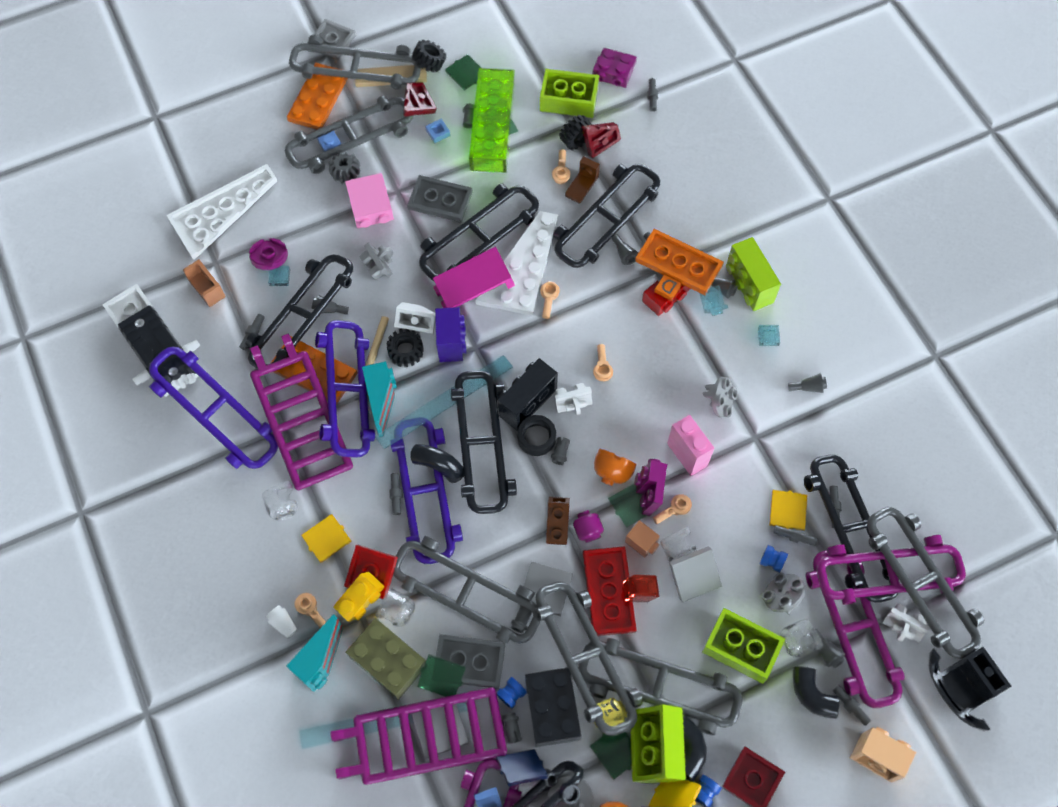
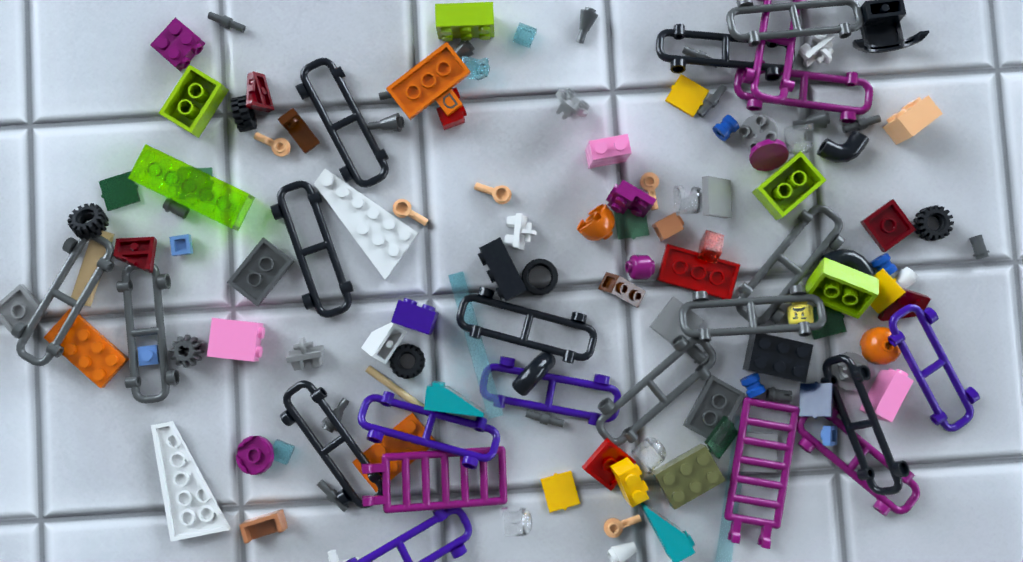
camera: 75 degrees left, 20 degrees up
(472, 279) = (367, 275): dark pink panel -> none
(560, 451) = (561, 262): dark grey pin -> none
(766, 609) = (768, 155): none -> magenta tile

